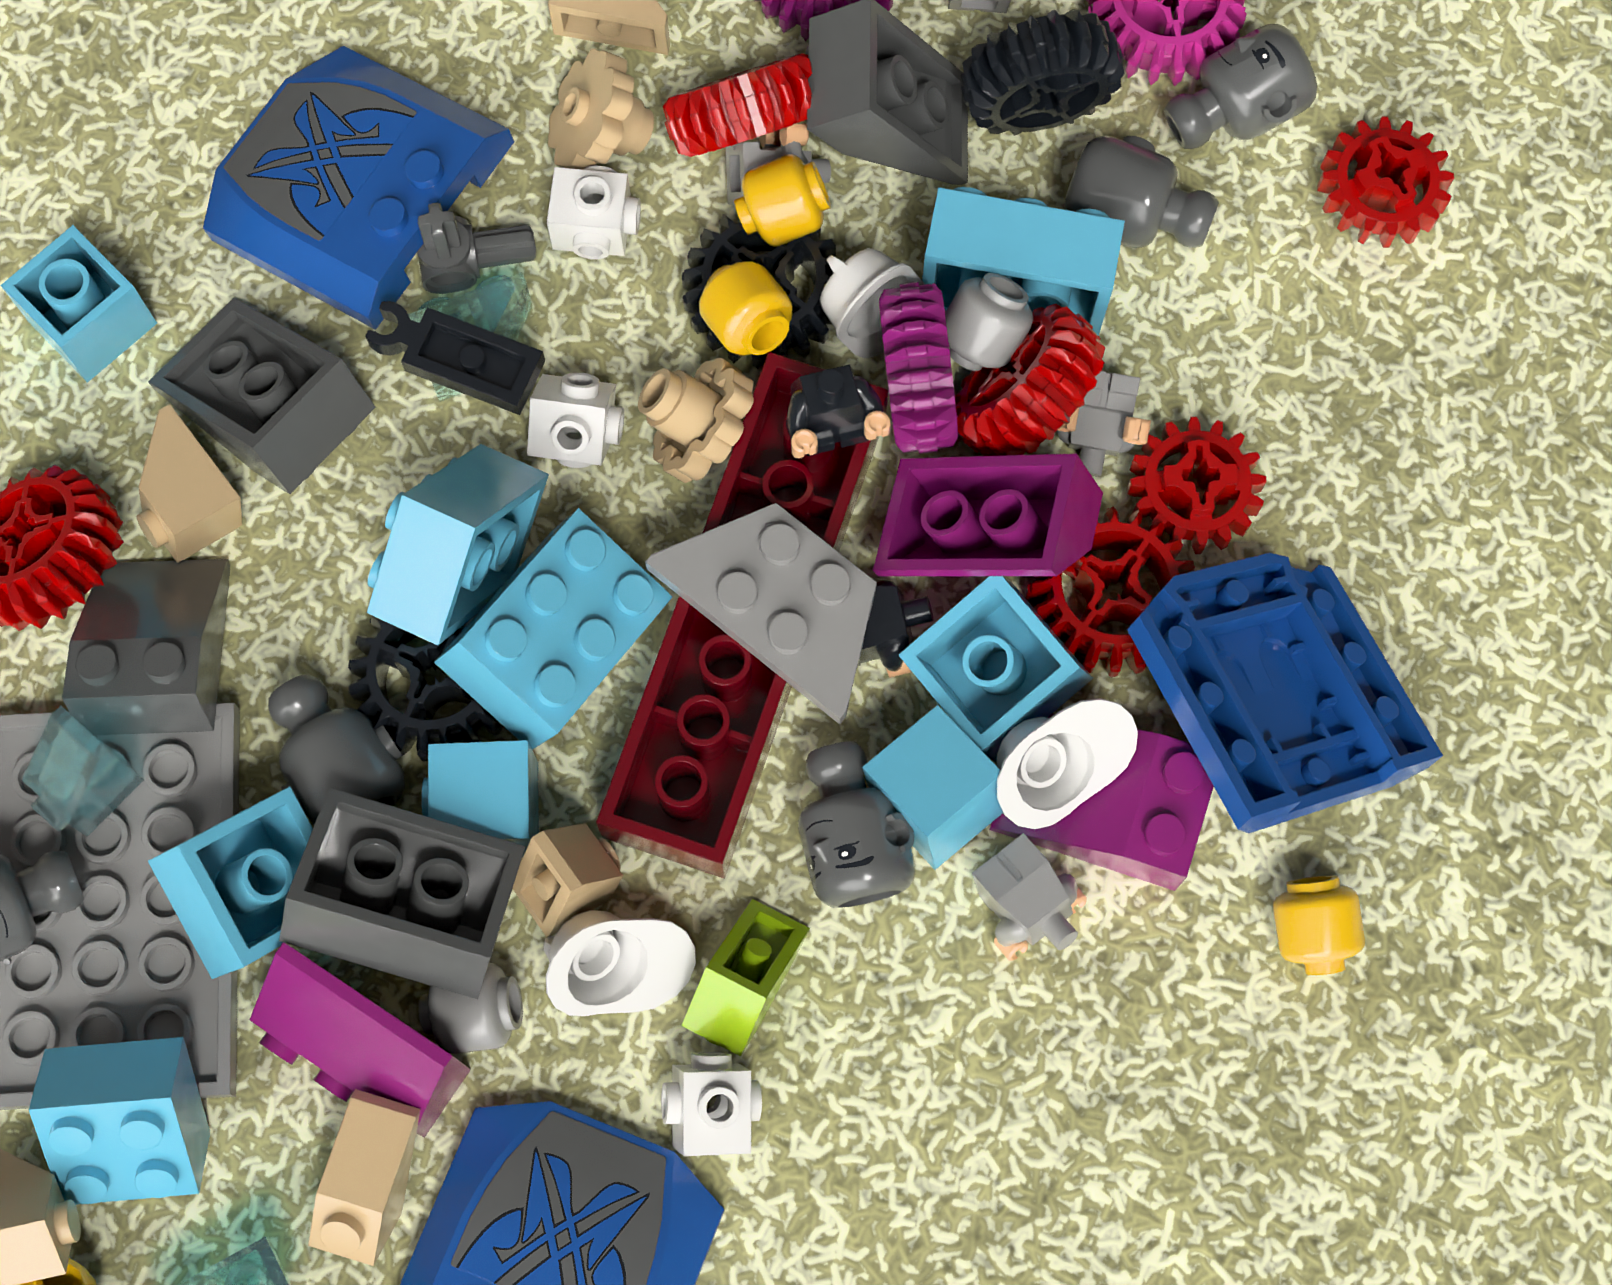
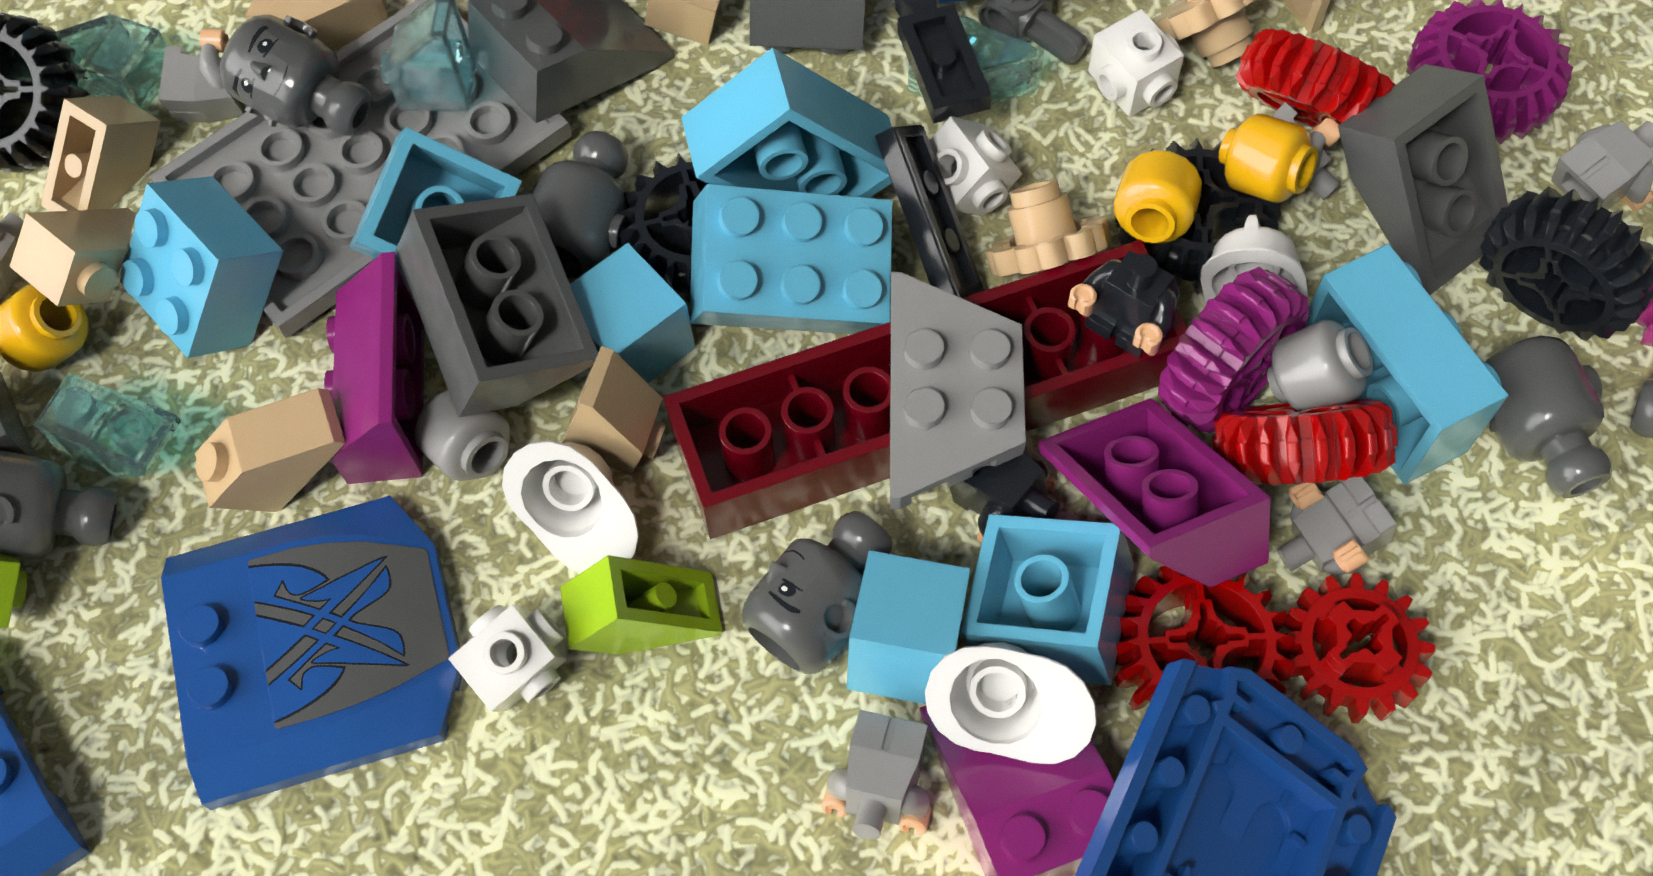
camera: 55 degrees right, 10 degrees down
(600, 486) = (929, 210): none -> black tile

